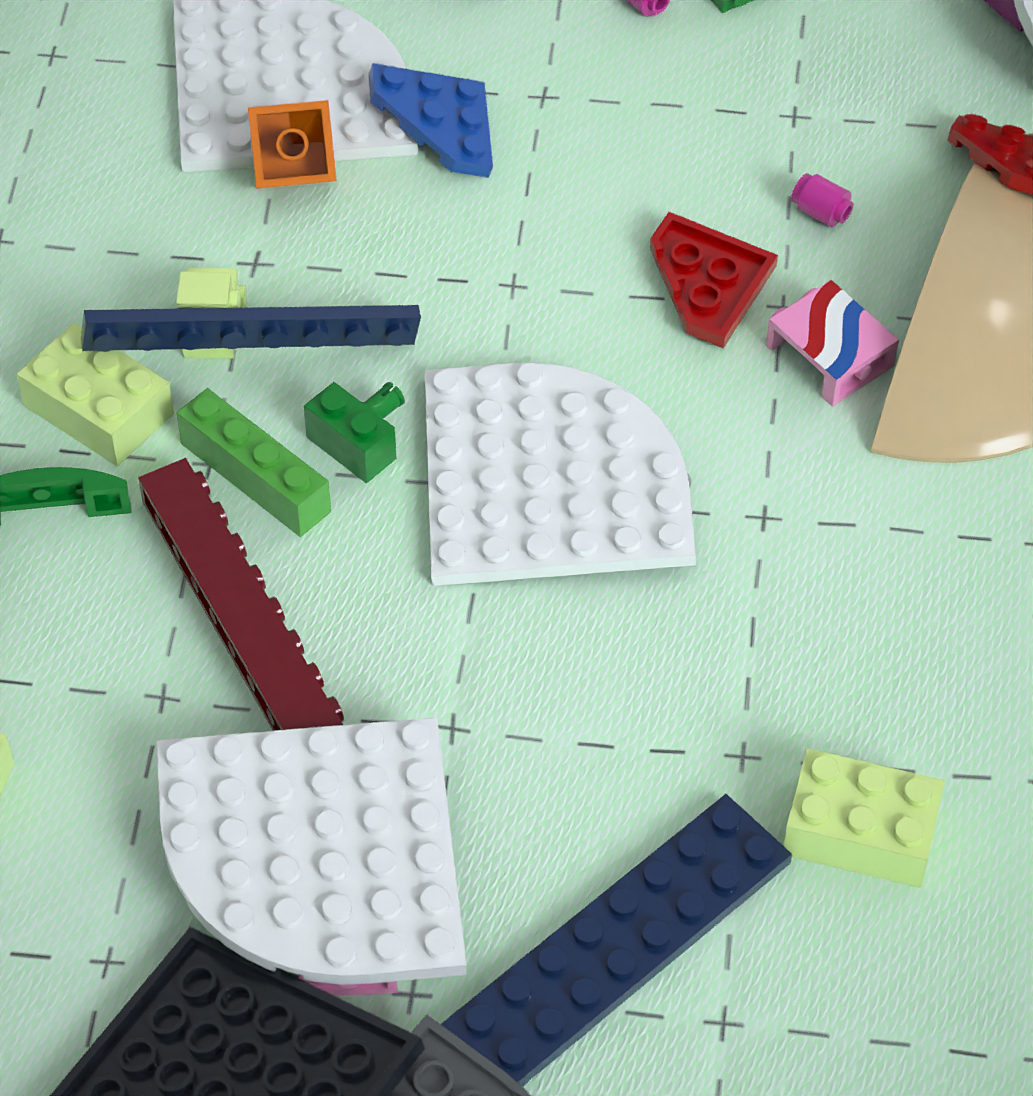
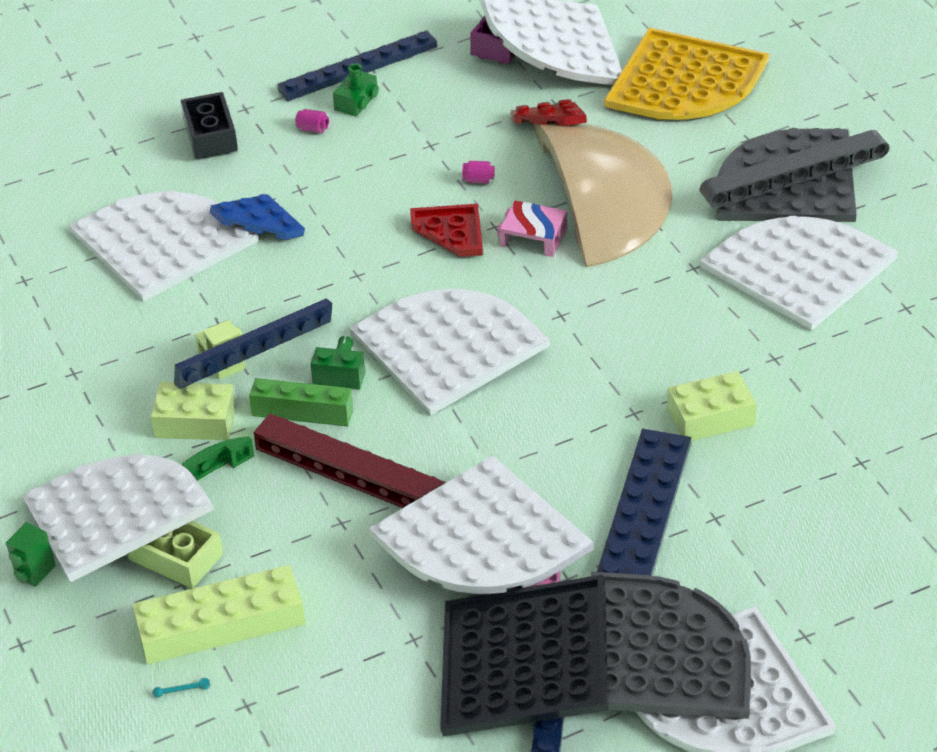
camera: 30 degrees left, 10 degrees down
(292, 144) = (200, 257): orange slope -> none

